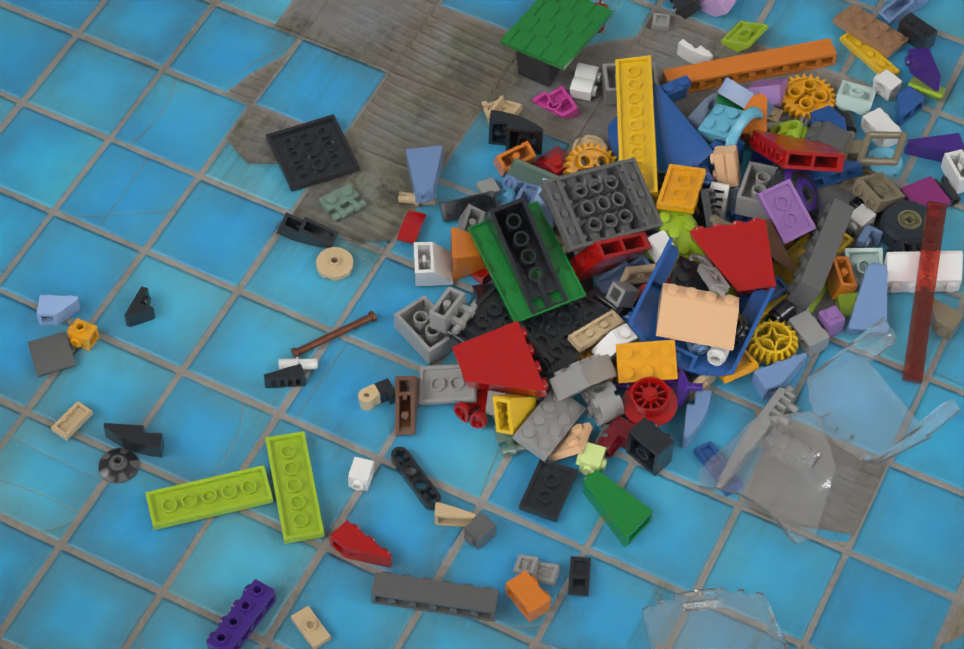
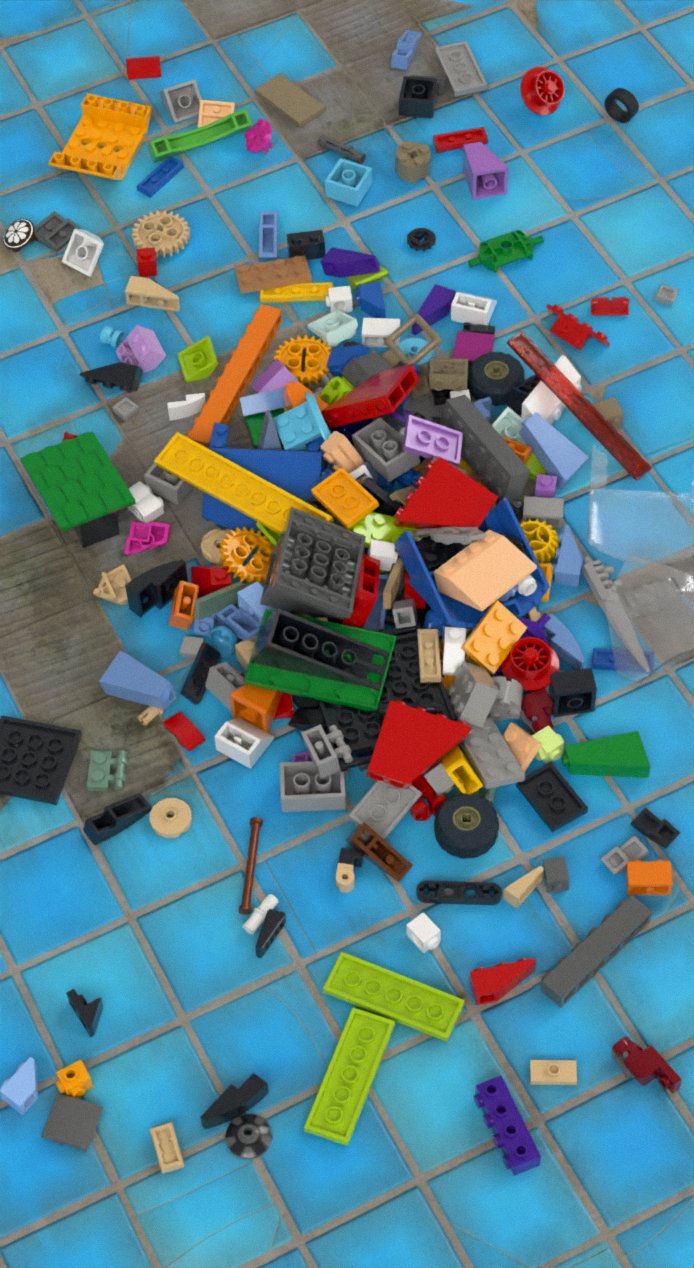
camera: 50 degrees left, 0 degrees up
(473, 447) = (466, 826): none -> black wheel

